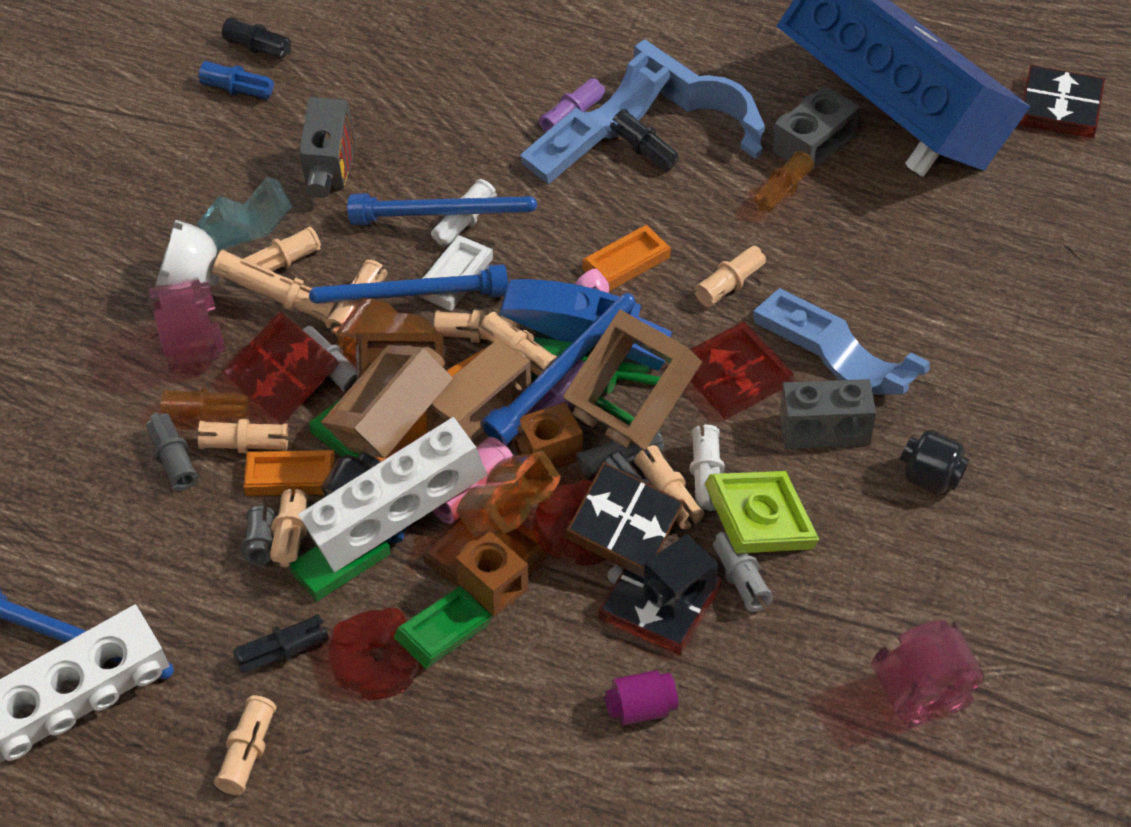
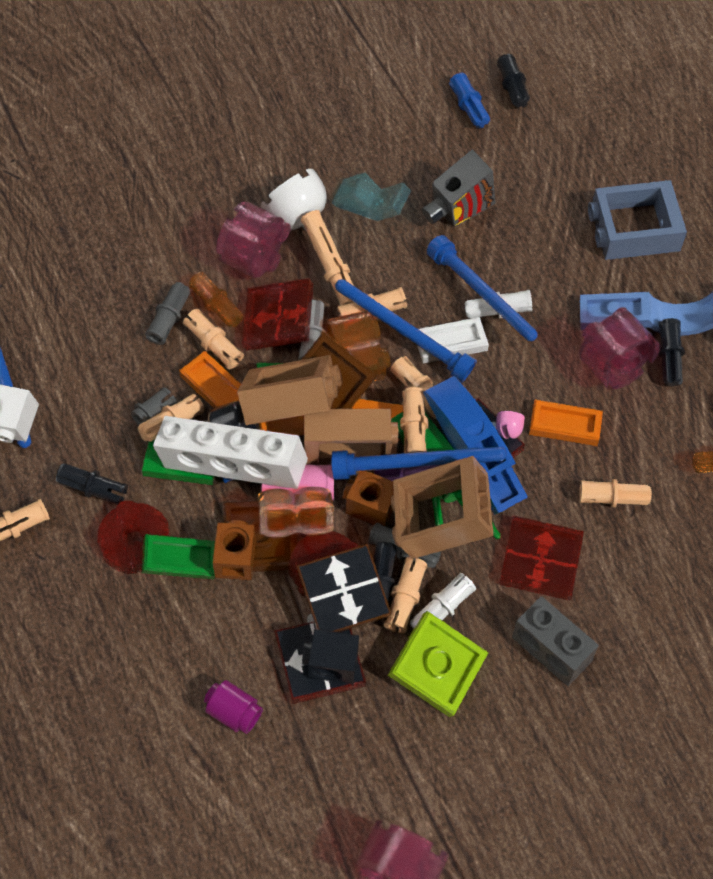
camera: 45 degrees right, 10 degrees up
(286, 251) = (364, 240): light nougat axle -> none
(509, 40) = (644, 242): none -> sand blue window
(582, 99) = (657, 288): medium lavender axle -> none
(606, 164) = (618, 348): none -> clear pink brick
(743, 573) = (380, 694): light grey axle -> none
(834, 343) = (622, 602): medium blue piece -> none
(934, 462) = (582, 738): black head -> none

